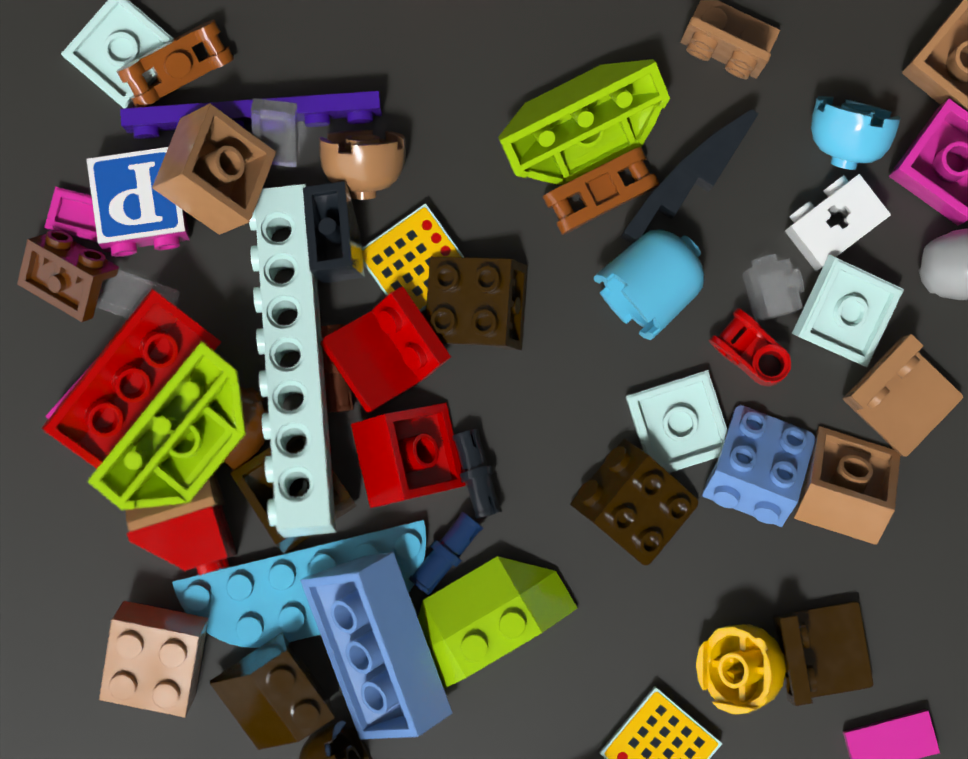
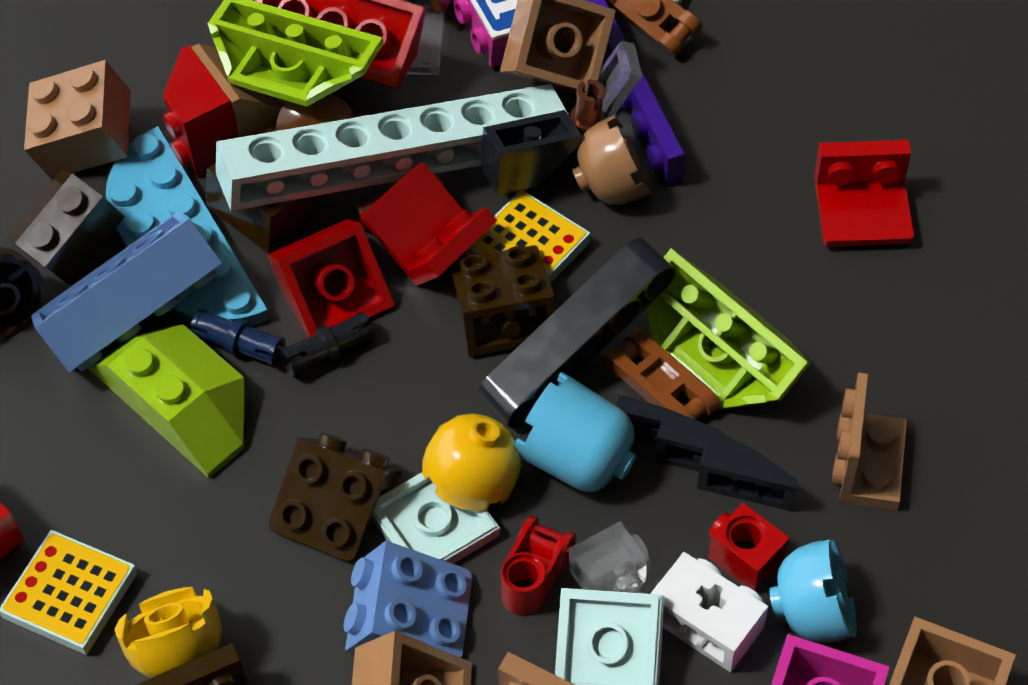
camera: 80 degrees right, 30 degrees down
(308, 166) = (588, 106): none -> copper pin
(549, 248) = (577, 330): none -> black beam
(646, 377) = (472, 462): none -> yellow cylinder
(804, 161) = (753, 565): none -> red brick

